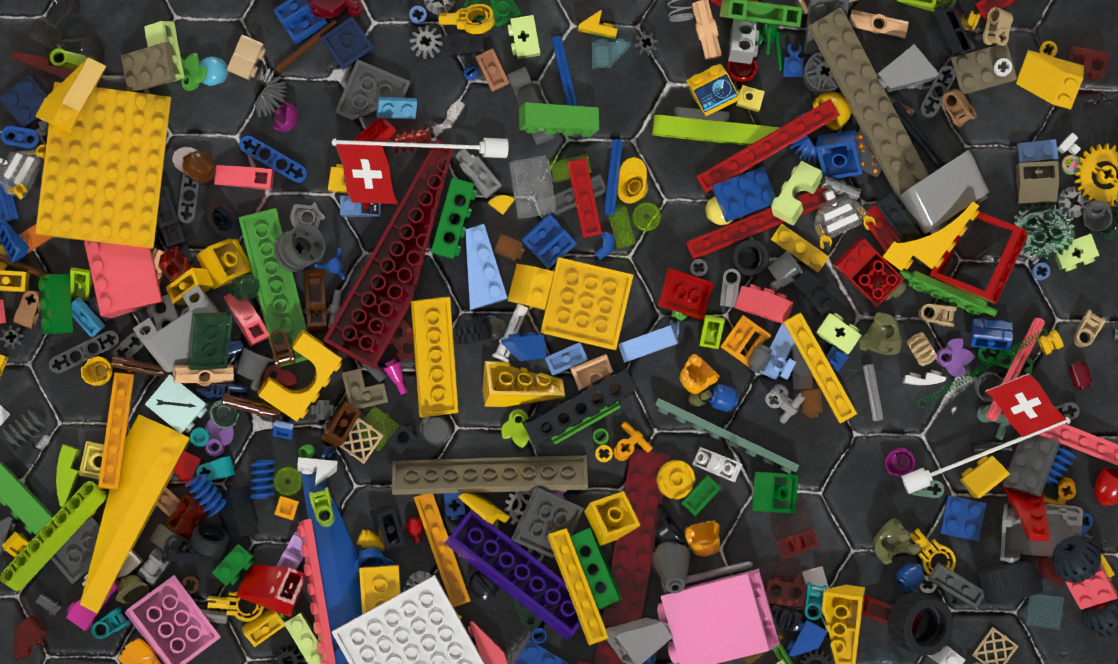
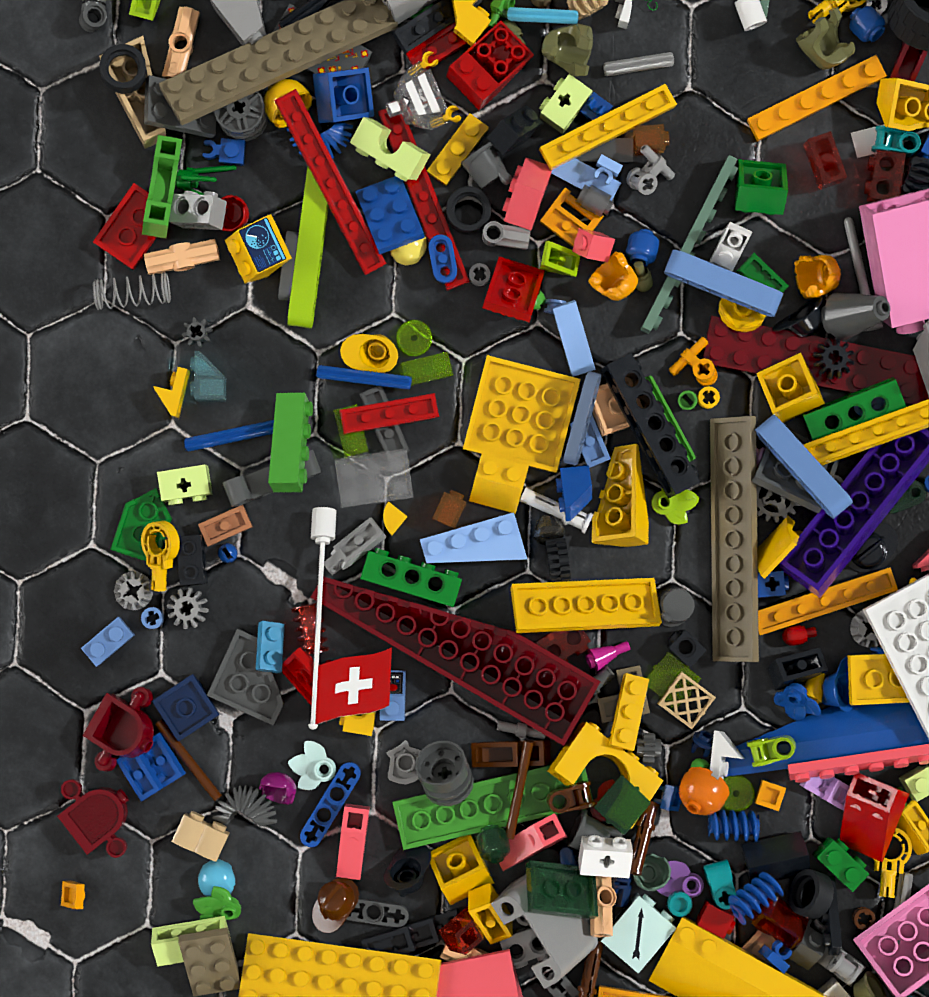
camera: 90 degrees left, 0 degrees up
(159, 511) = (775, 957): none -> blue tile
(236, 375) = (605, 856): none -> white brick
(277, 388) = (622, 805): none -> clear green piece
(287, 307) = (519, 789): none -> reddish brown bar
(287, 452) = (702, 792): none -> orange cylinder
(303, 141) = (309, 764): none -> light aqua plate
(334, 265) = (466, 729): blue plant -> none
(340, 425) = (668, 725): reddish brown slope -> none
(350, 392) = (628, 712): none -> yellow plate
(359, 527) = (796, 702): none -> blue plate
(547, 526) = (803, 466): none -> medium blue beam
(548, 241) = (442, 460): blue slope -> none
(583, 351) = (582, 418): none -> sand blue beam
(608, 245) = (448, 386): blue arm -> none
(632, 546) = (826, 363): none -> black gear
(694, 461) = (723, 283): none -> medium blue beam
(709, 238) = (442, 259): none -> blue plate
(723, 357) = (593, 245): none -> coral brick
(750, 98) = (270, 203): light yellow brick -> none
(840, 187) = (384, 95): light grey pin -> none
(849, 537) = (816, 98): none -> light orange plate
(900, 462) = (726, 31): magenta hair -> none
(908, 312) = (542, 15): none -> medium azure axle

